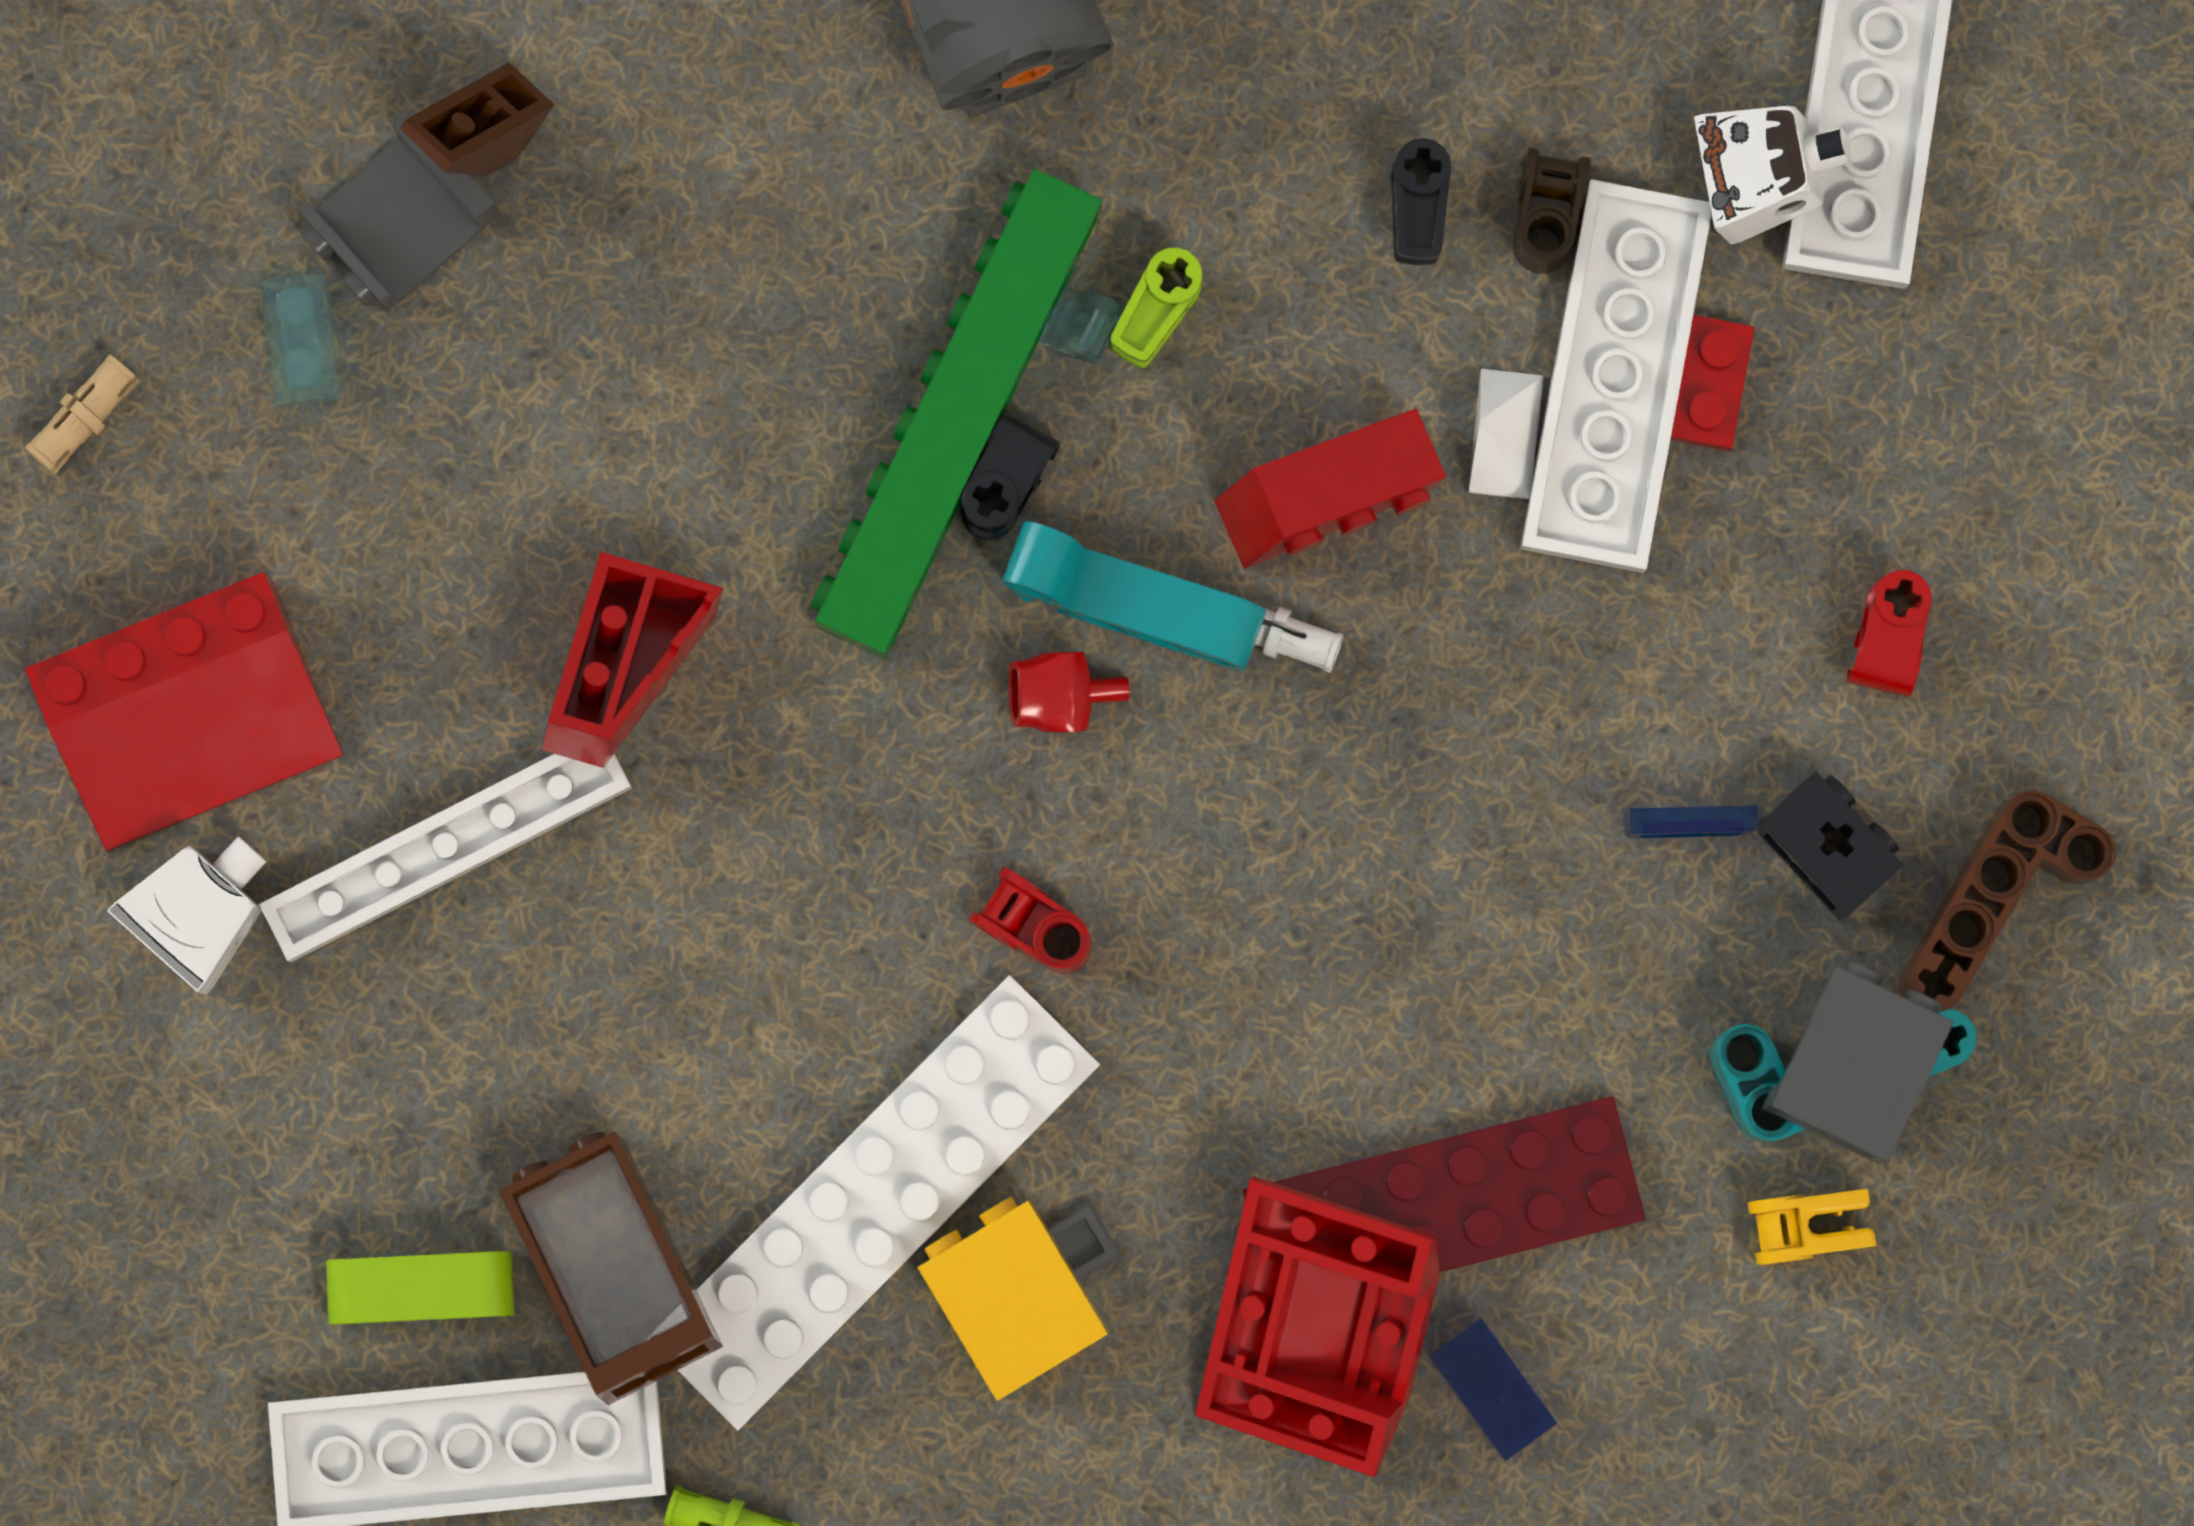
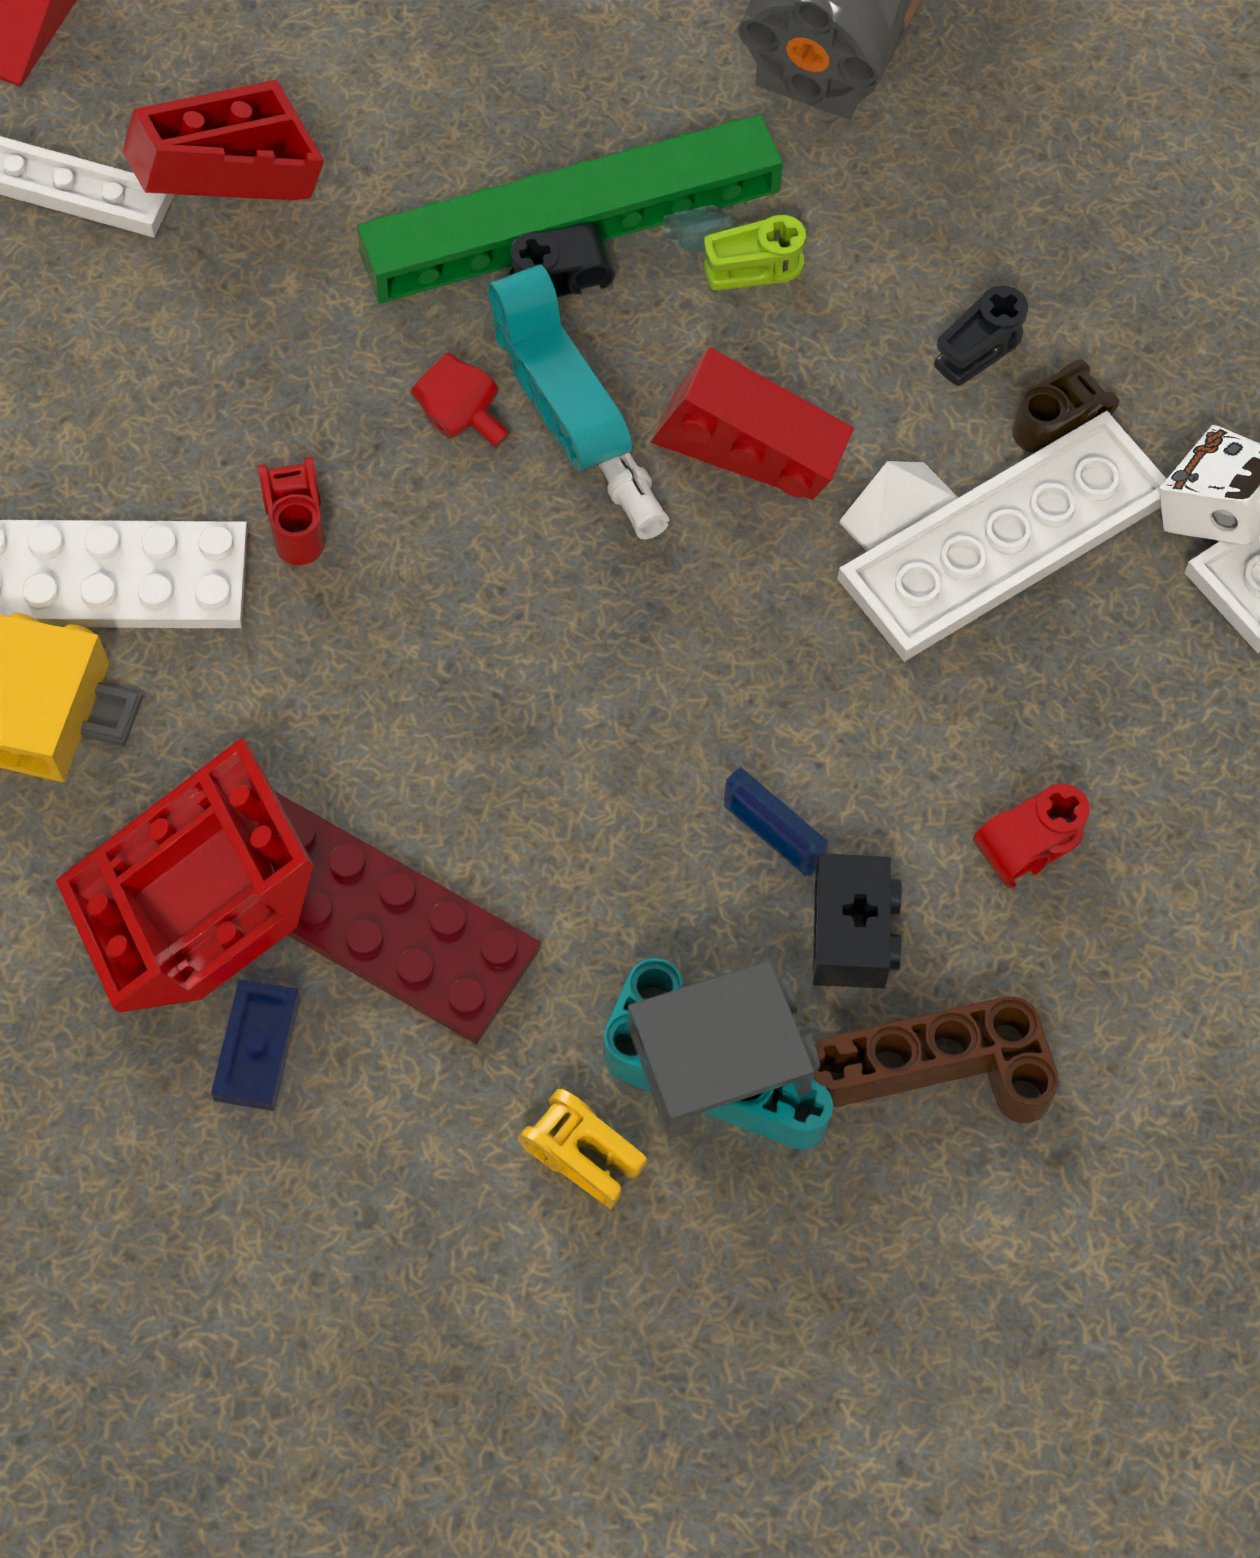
camera: 50 degrees right, 20 degrees down
(1712, 383) = (1066, 594): red plate -> none

